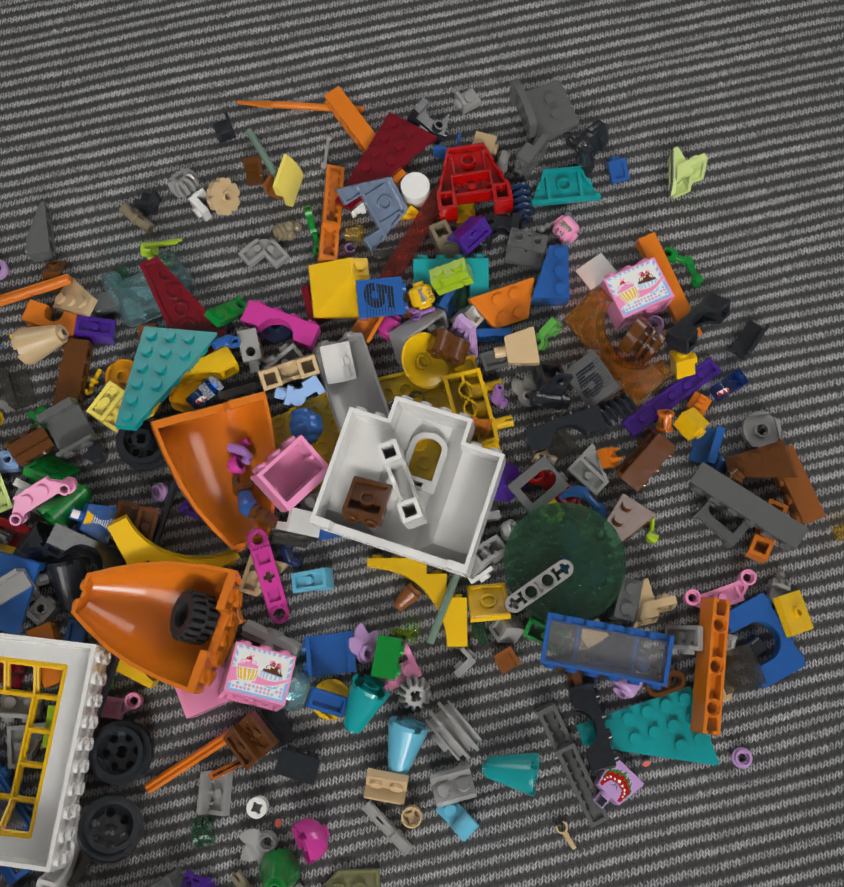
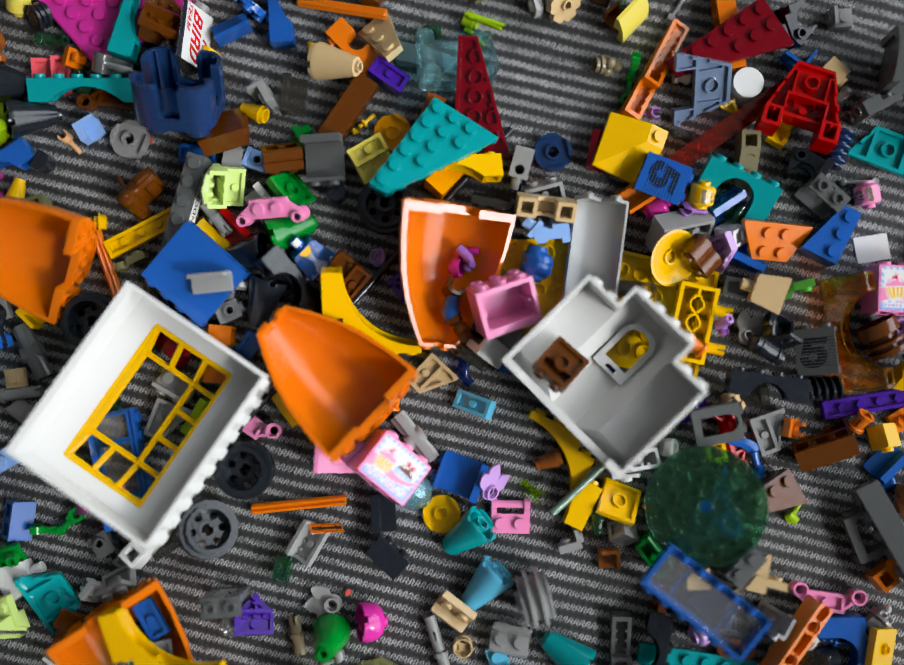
camera: 25 degrees right, 10 degrees up
(194, 617) = (360, 390): black tyre -> none
(205, 392) = (460, 188): clear blue leg -> none
(226, 312) = (516, 120): green plate -> none
(226, 341) = (503, 149): blue arm -> none
(250, 740) = (358, 515): reddish brown slope -> none
(261, 316) = (543, 138): dark pink arch -> none
(262, 806) = (340, 568): white wheel -> none
(263, 248) = (575, 72): light grey plate -> none
(263, 562) = (440, 369): dark pink piece -> none
(326, 701) = (437, 516): blue tile -> none
(338, 362) = (593, 220): white panel -> none
(354, 234) = (667, 100): clear yellow piece -> none
(386, 658) = (507, 506): green brick -> none
(399, 473) = (598, 380): white arch -> none
(415, 699) = (515, 546): light grey gear -> none
(451, 276) = (739, 191): lime brick -> none
(470, 233) = (778, 157): dark purple panel -> none
(540, 587) = (673, 519): light grey beam -> none
(750, 630) = (834, 641): none -> blue hand

